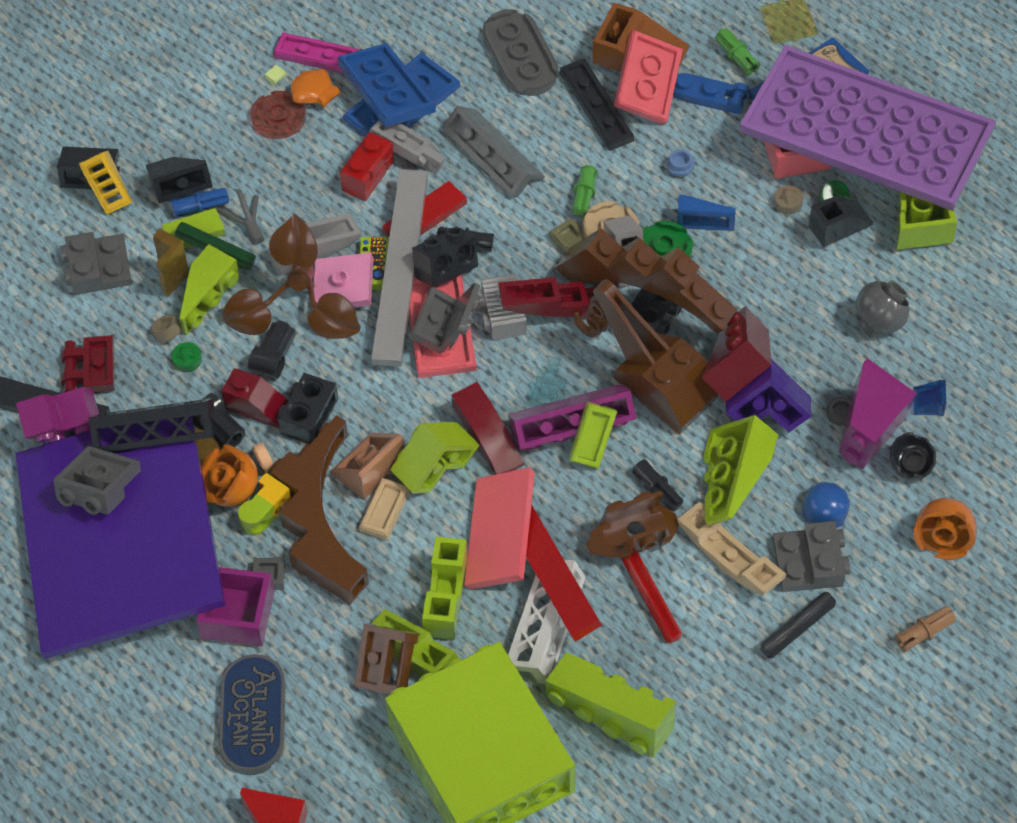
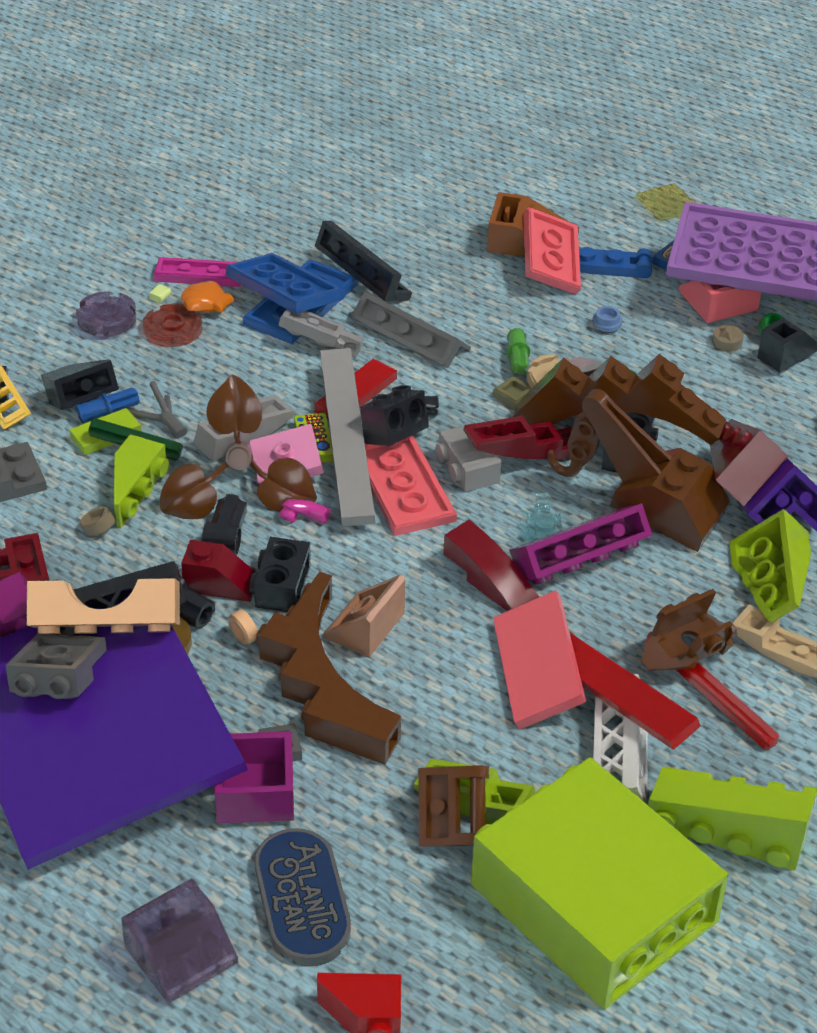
camera: 15 degrees left, 15 degrees down
(104, 429) = (150, 604): none -> light nougat arch
(146, 740) = (178, 940): none -> clear purple slope
(171, 261) = (90, 452): pearl gold panel -> none
(186, 357) = (127, 546): green tile -> none
(224, 108) = (118, 319): none -> clear purple plate
(229, 476) = (213, 645): orange cylinder -> none
(265, 506) = (258, 676): leg -> none
(347, 339) = (306, 508): none -> dark pink arm
(367, 166) = (283, 353): red brick -> none
(384, 509) = (397, 662): tan tile -> none
(431, 452) = (437, 596): lime brick -> none
(444, 318) = (411, 474): dark grey bracket -> none
(446, 587) = (496, 729): lime arch -> none
(466, 68) = (361, 263): none -> black fence
(520, 52) = (411, 251): dark grey tile -> none
(592, 435) = (611, 555): lime tile -> none
(597, 104) = (504, 283): black tile -> none
(656, 483) = (681, 590): black axle -> none
(705, 215) = (651, 348): blue slope -> none
(737, 51) = (629, 227): bright green axle -> none

